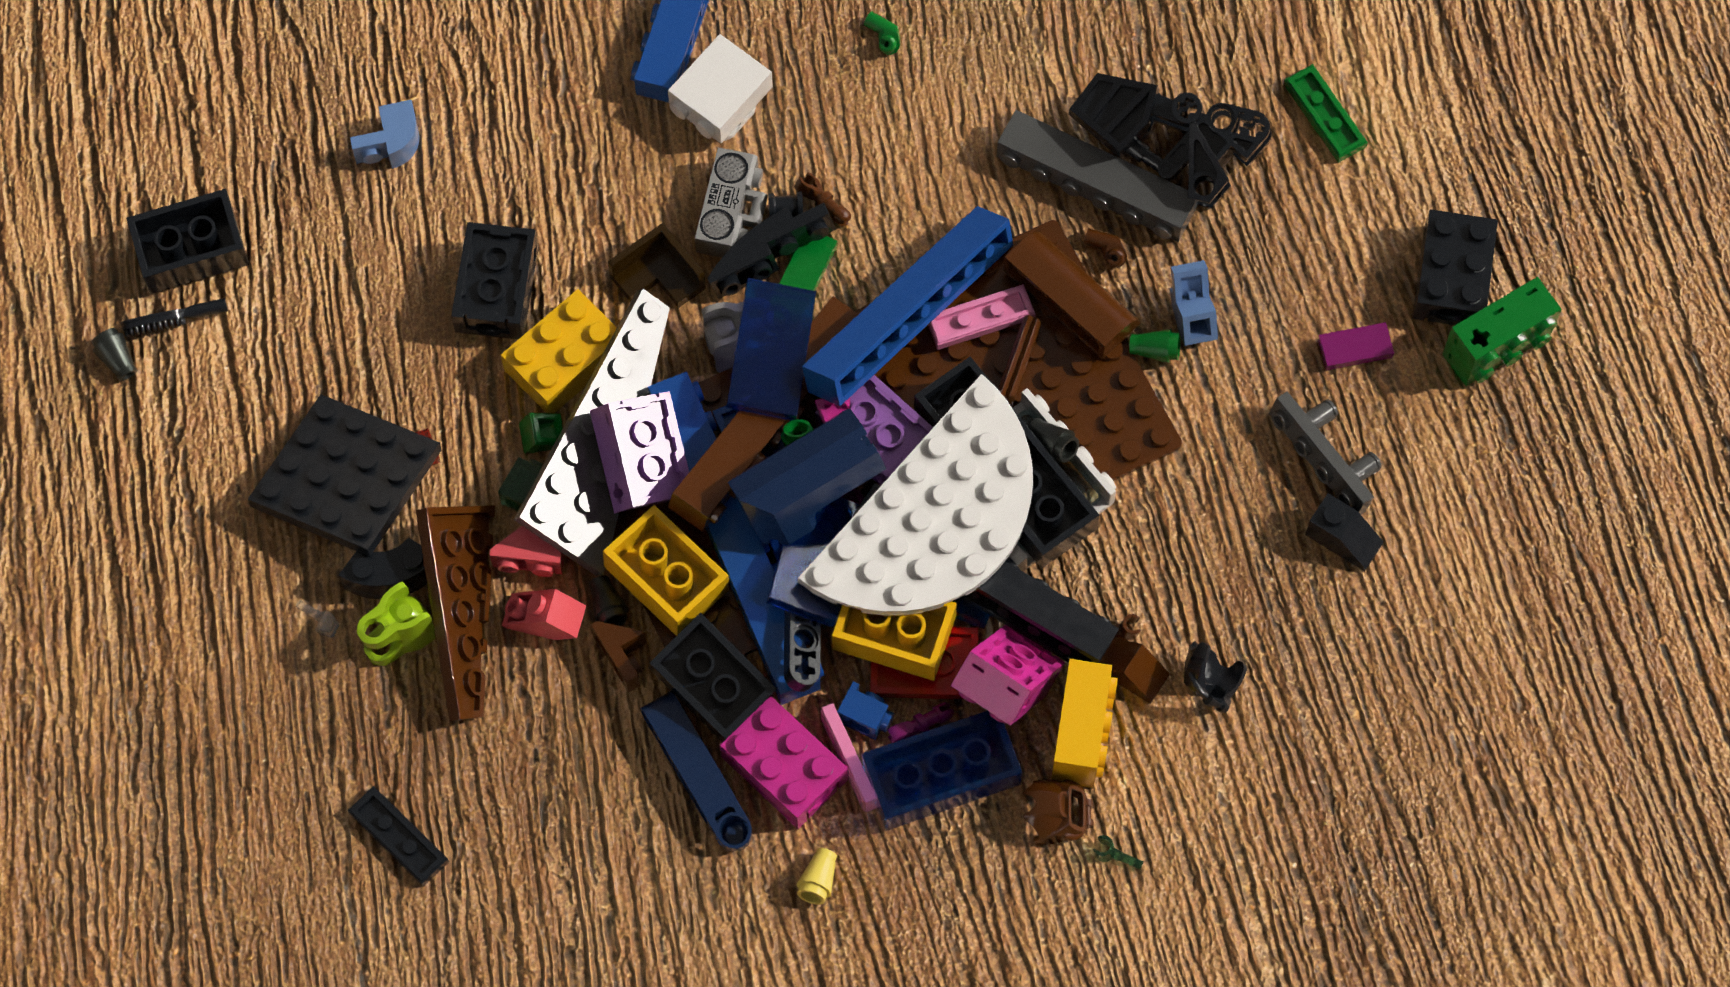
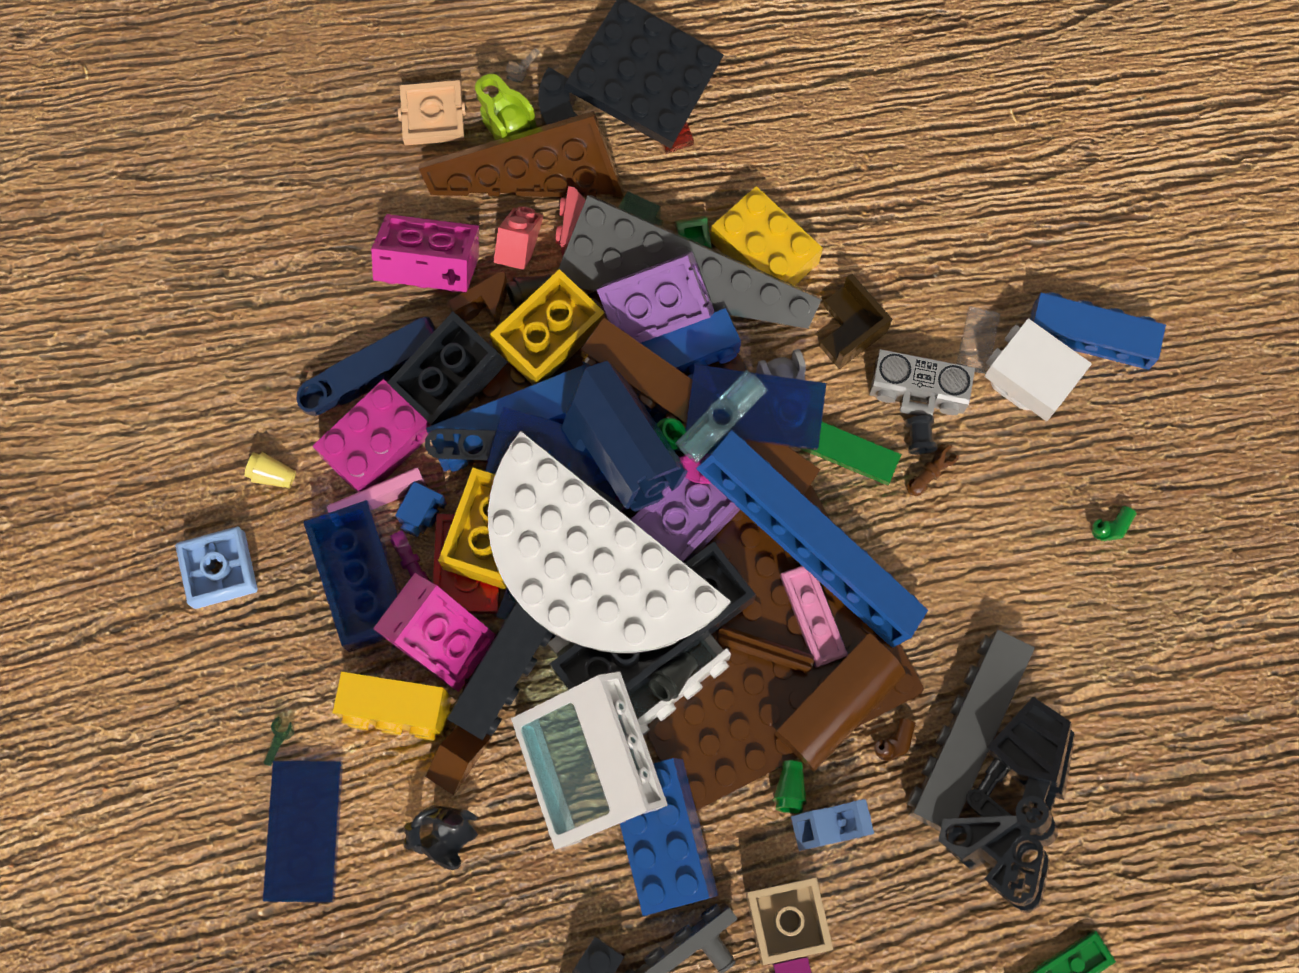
camera: 90 degrees right, 5 degrees up
(378, 715) = (432, 112): none -> light nougat plate
(396, 140) = (972, 102): medium blue brick -> none
(398, 836) = (329, 135): black tile -> none
(495, 280) = (832, 183): black piece -> none
(567, 705) = (425, 253): none -> dark pink piece
(677, 149) = (978, 338): none -> clear tile
(756, 251) = (871, 407): black slope -> none
(802, 390) = (736, 401): none -> clear light blue piece
(944, 905) = (199, 557): none -> light blue brick
(1053, 811) = (315, 677): reddish brown helmet -> none
(1123, 630) = (498, 747): reddish brown hand -> none
(1141, 524) = (588, 760): none -> panel
(1209, 460) = (669, 847): none -> blue brick
(1210, 822) = (303, 831): none -> clear blue tile
(1287, 347) = (788, 921): none -> tan brick

